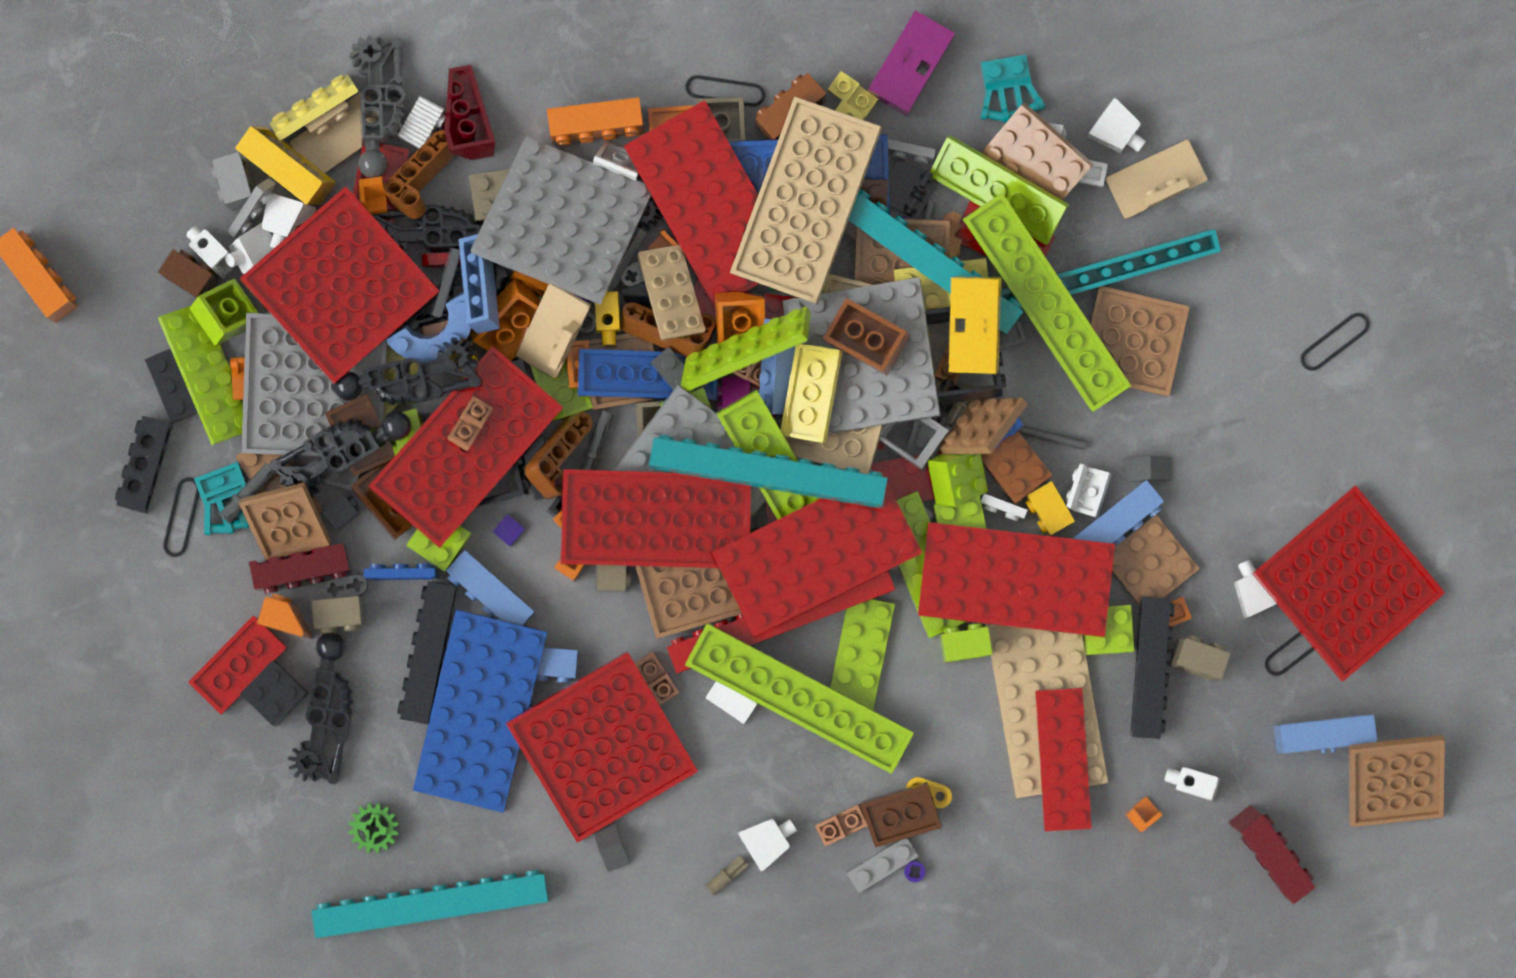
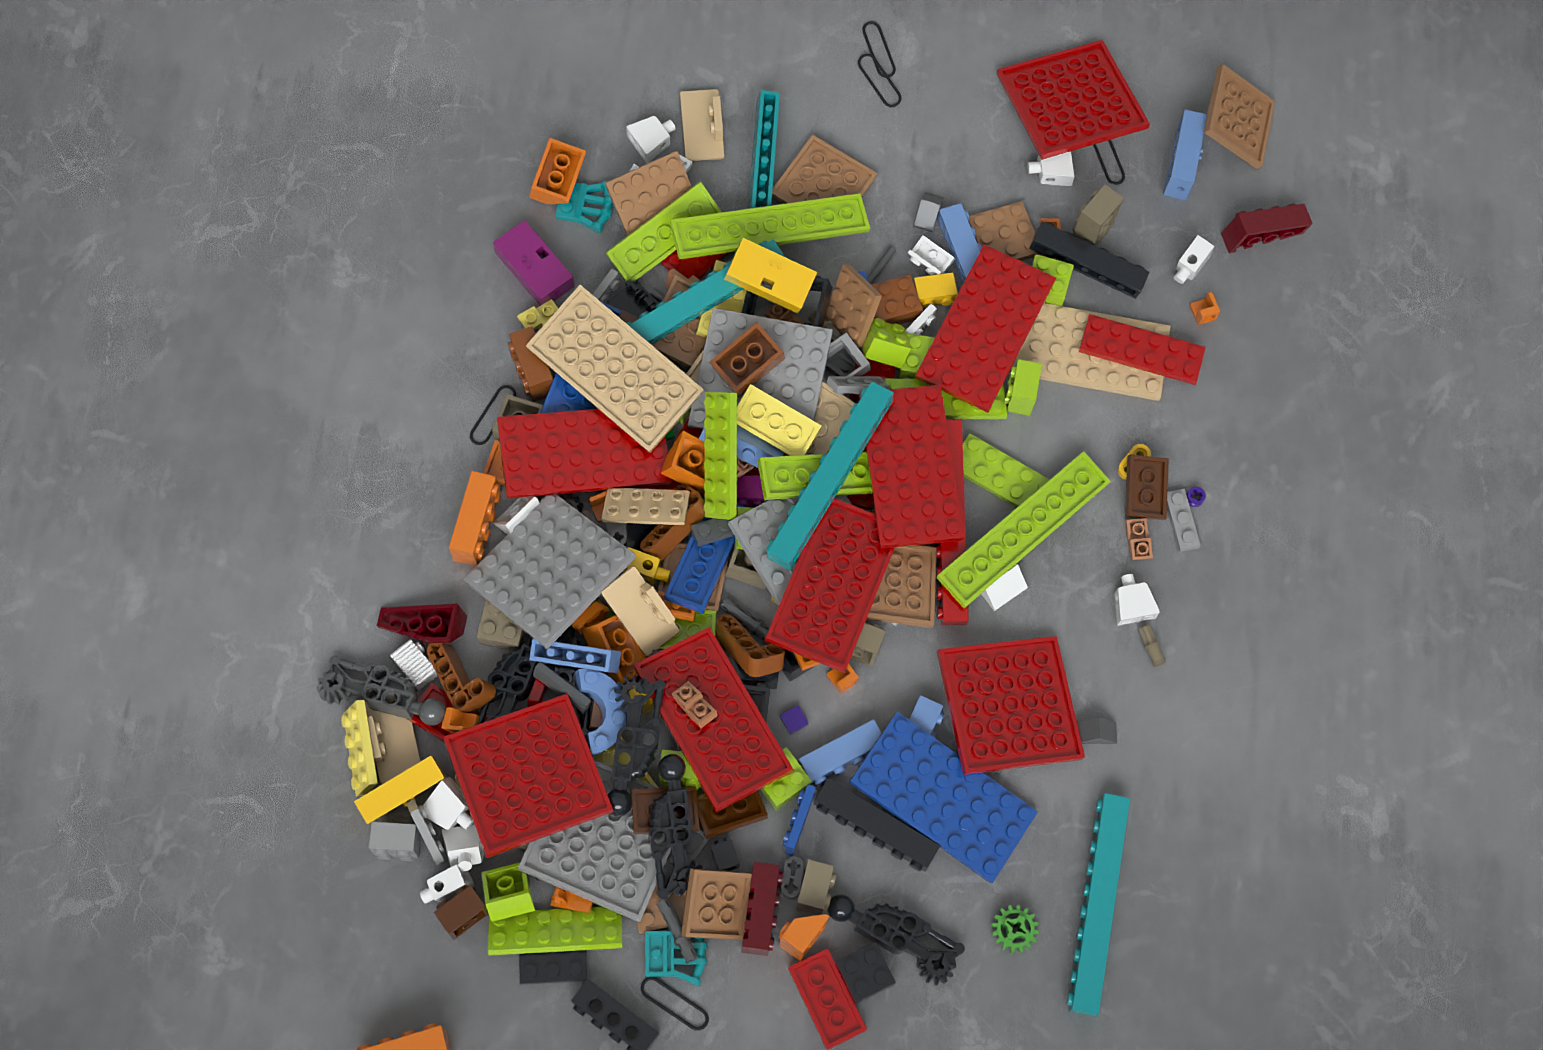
camera: 75 degrees left, 15 degrees down
(656, 678) = (967, 638): nougat slope -> none
(892, 464) = (853, 384): none -> light grey plate
(1028, 45) = (557, 173): none -> orange slope
(1285, 351) = (874, 87): none -> black piece

